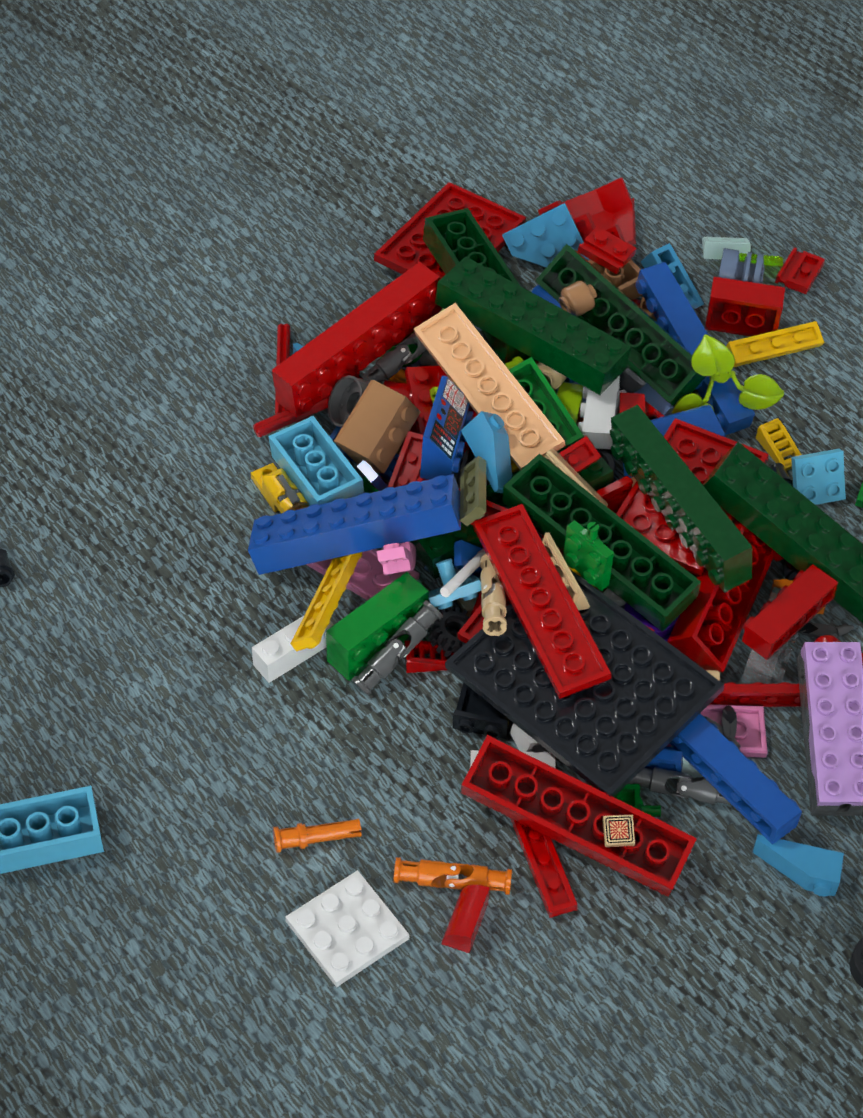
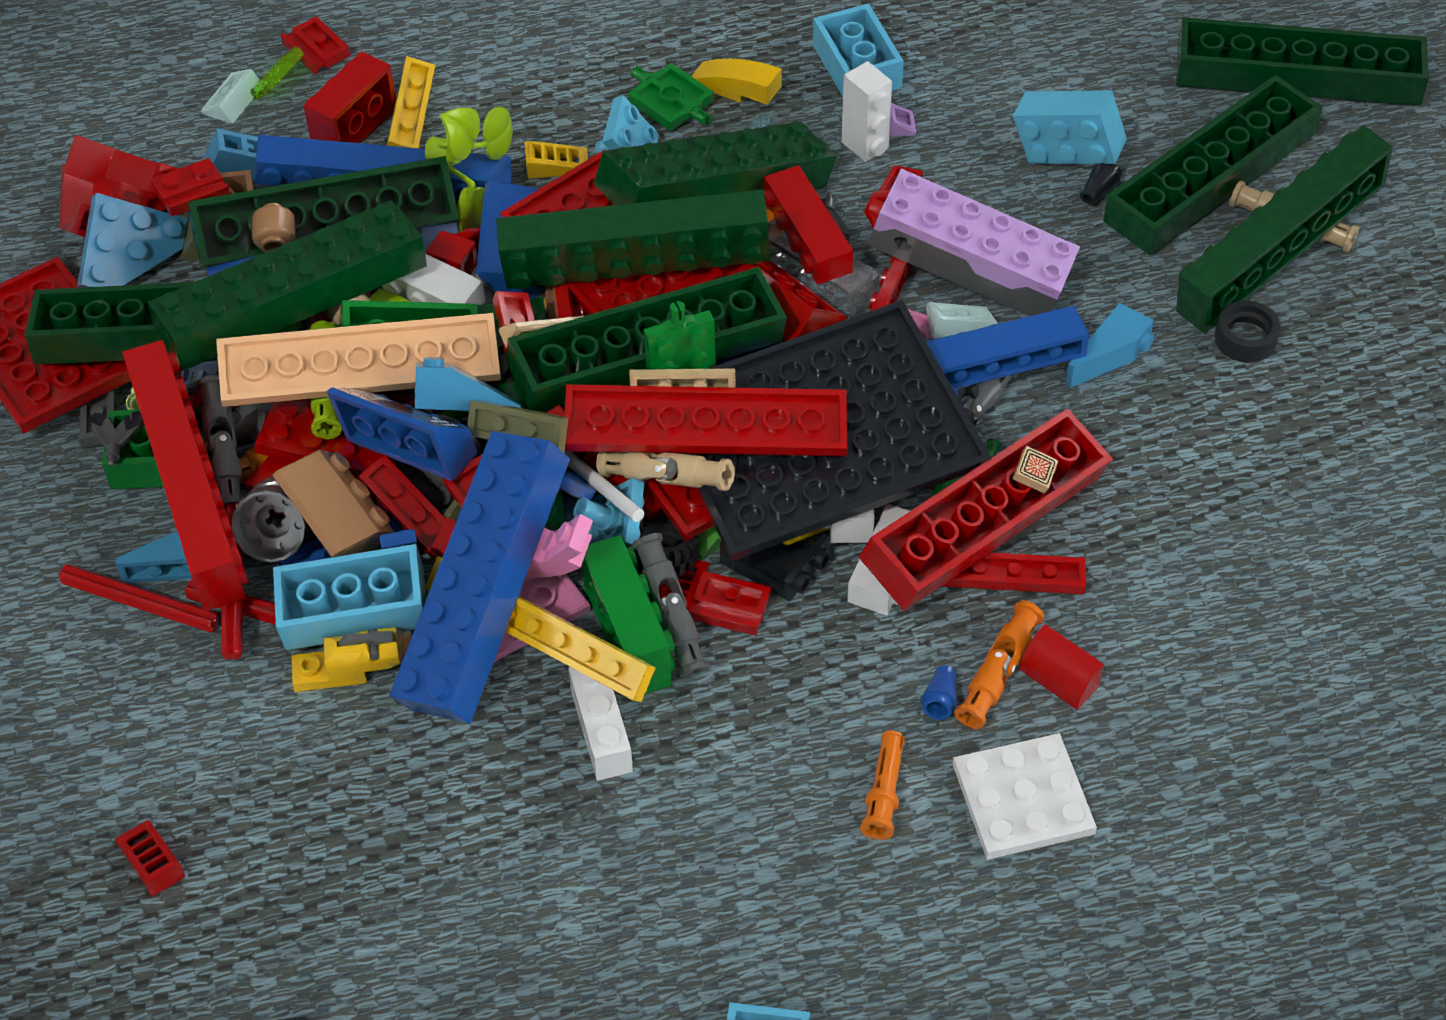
camera: 65 degrees left, 0 degrees up
(95, 466) = (161, 877): none -> red slope
(410, 845) = (940, 695): none -> blue cone
(428, 689) = (730, 603): none -> red plate
(744, 271) = (290, 87): sand blue wheel -> none
(767, 750) = (954, 318): none -> light aqua slope

